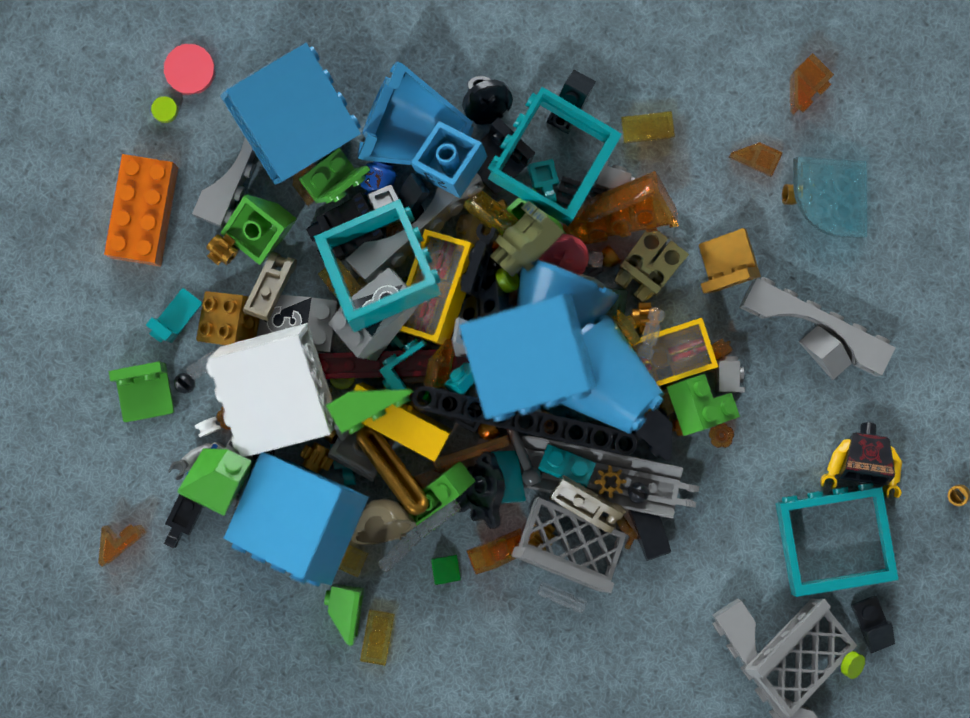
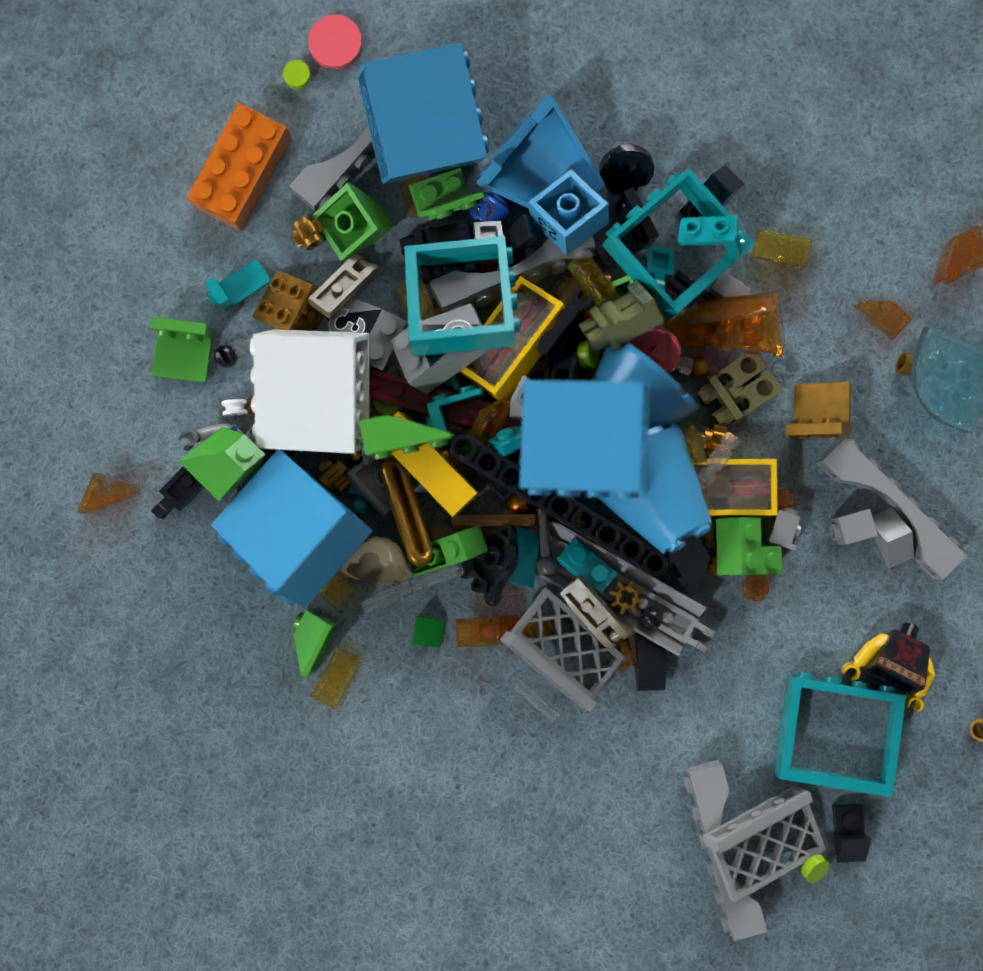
camera: 25 degrees right, 0 degrees up
(581, 137) = (714, 230): none -> teal bracket
(789, 354) = (853, 527): none -> light grey brick

